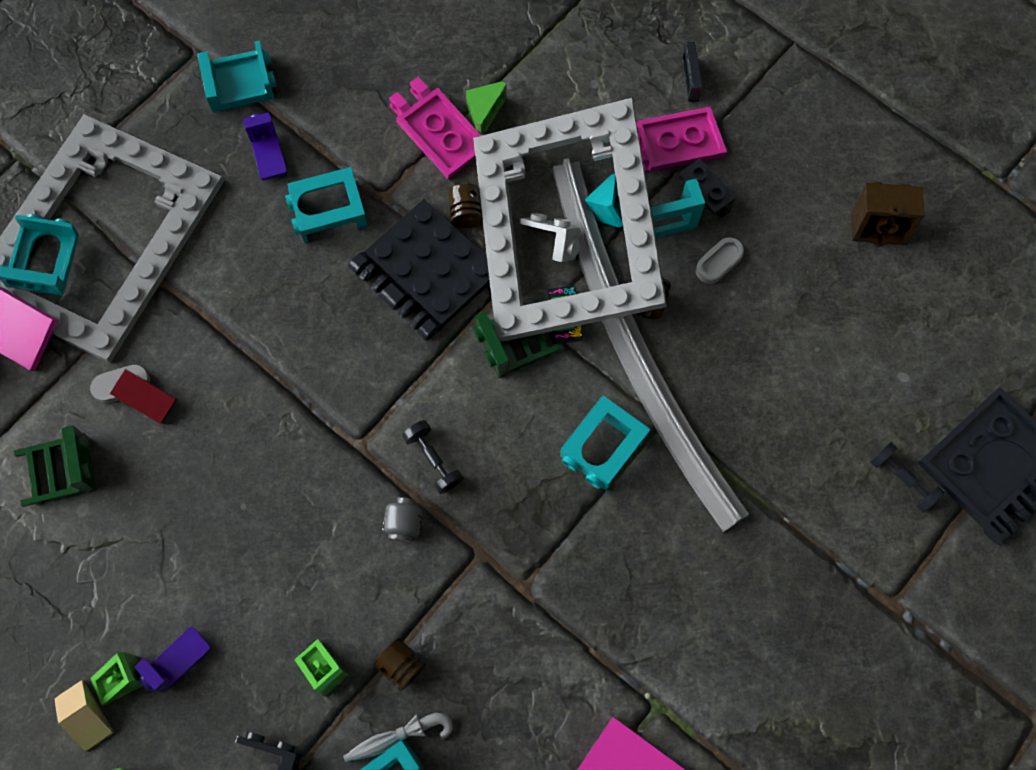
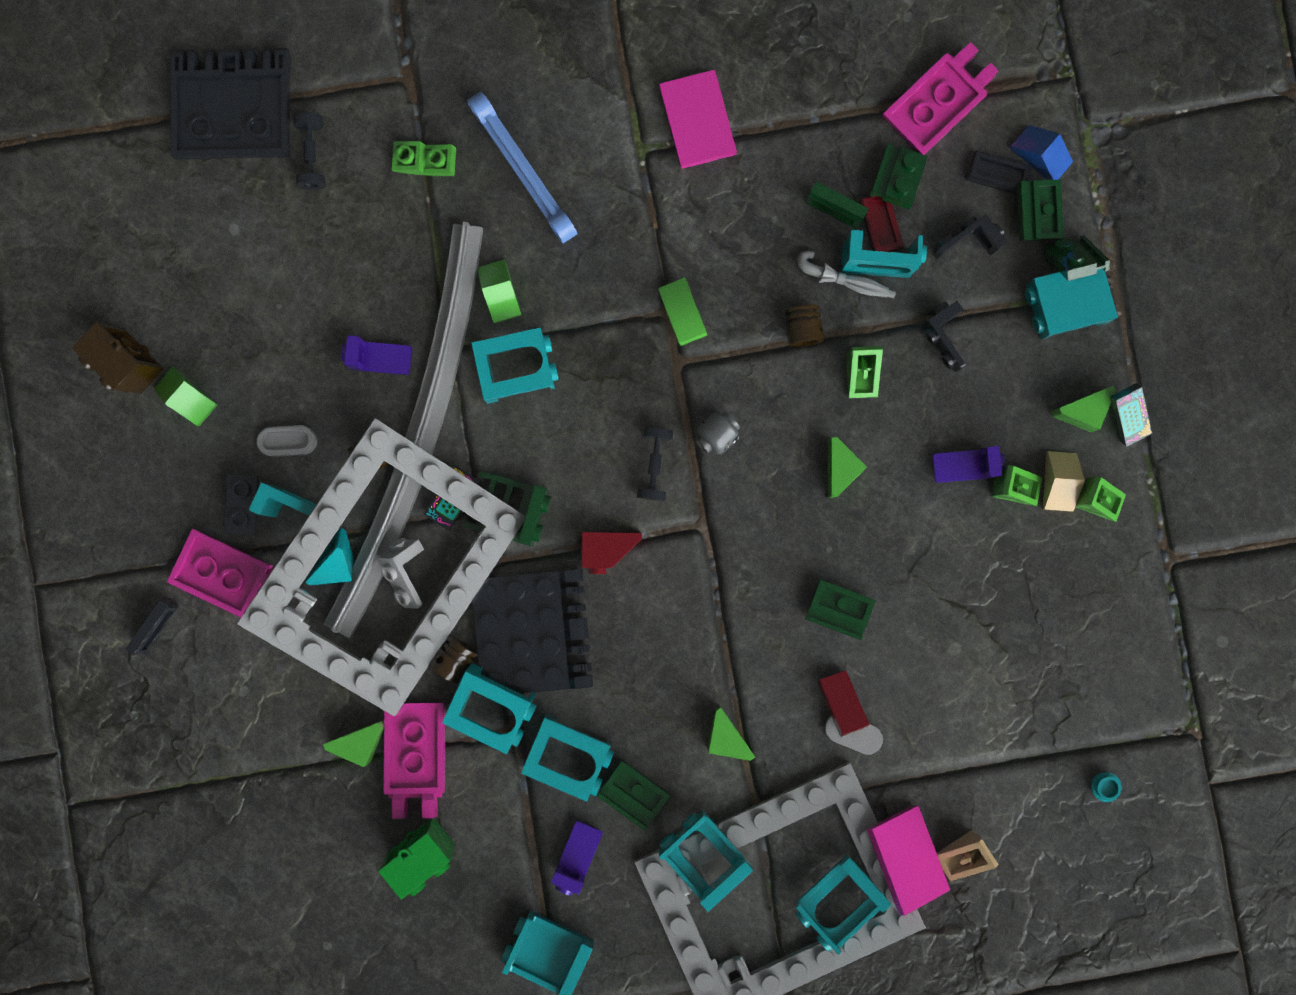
camera: 140 degrees left, 15 degrees up
(36, 725) = (1100, 498): none -> bright green slope
(76, 463) = (934, 689): dark green plate -> none
(140, 203) = (708, 894): none -> teal panel
(198, 464) = (840, 609): none -> dark green plate
(214, 304) = (725, 738): none -> bright green slope
(257, 218) = (633, 795): none -> dark green plate
(277, 573) = (842, 467): none -> bright green slope
(377, 63) = (417, 859): none -> green brick
(414, 202) = (519, 704): none -> teal panel
(418, 366) = (606, 549): none -> dark red slope
(509, 593) = (682, 311): none -> bright green slope
(668, 492) = (499, 291): none -> bright green slope
(713, 366) = (376, 356): none -> dark purple bracket
(803, 622) = (488, 118): none -> medium blue piece
(818, 547) = (423, 159): none -> bright green slope
(819, 231) = (184, 397): none -> bright green slope

